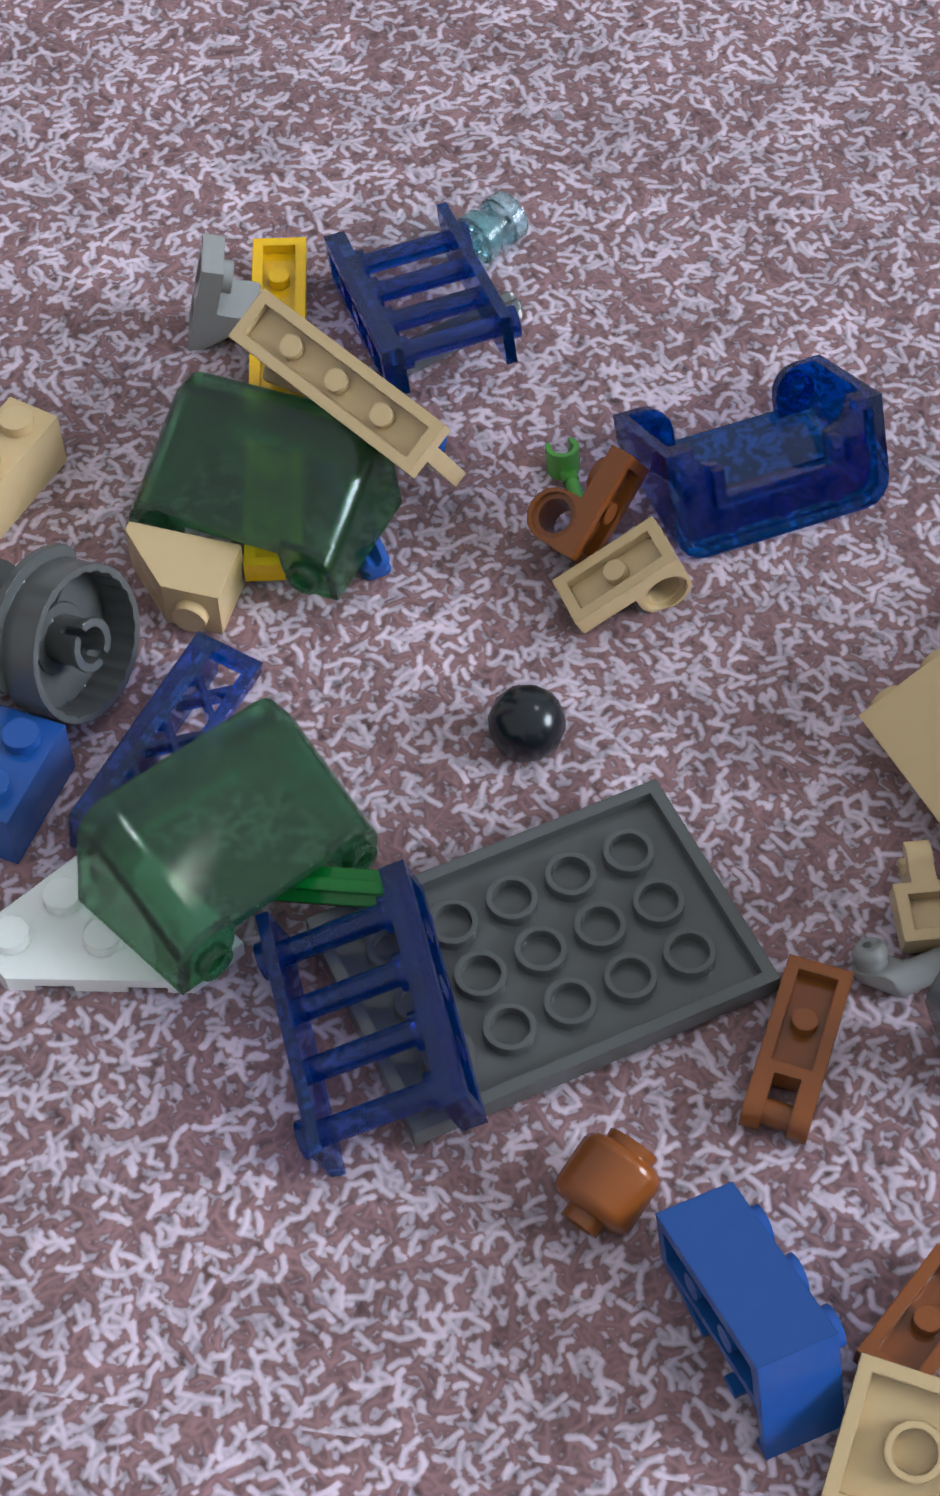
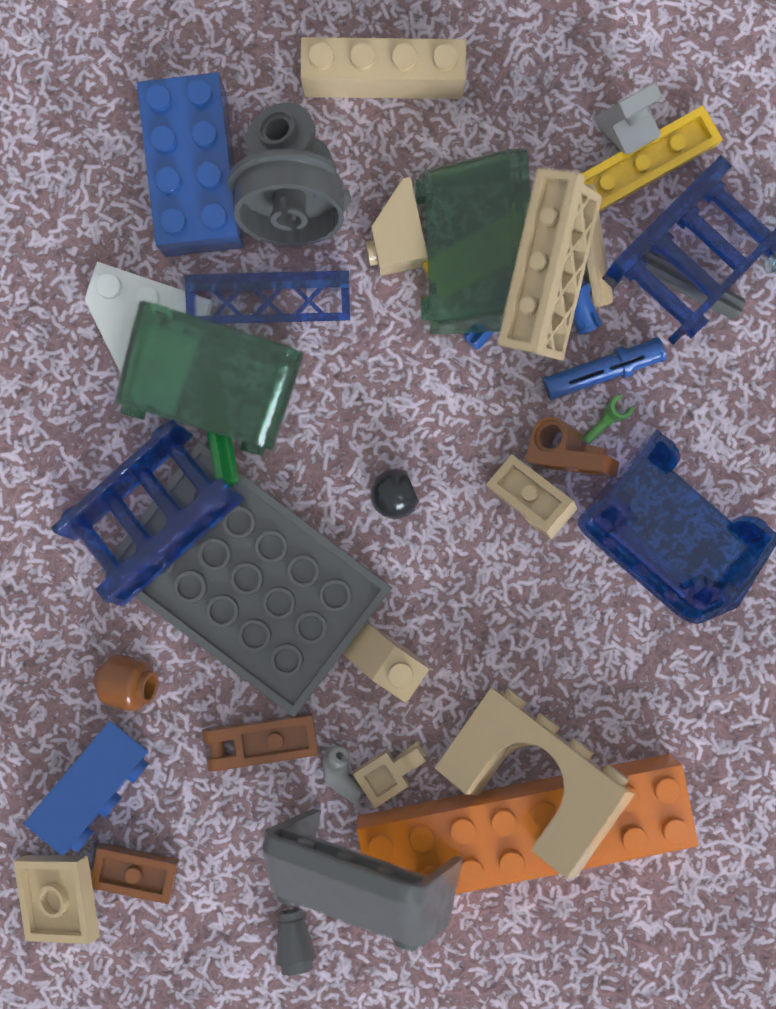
camera: 65 degrees right, 35 degrees up
(511, 404) = (647, 353): none -> blue pin
(763, 827) = (386, 662): none -> tan slope

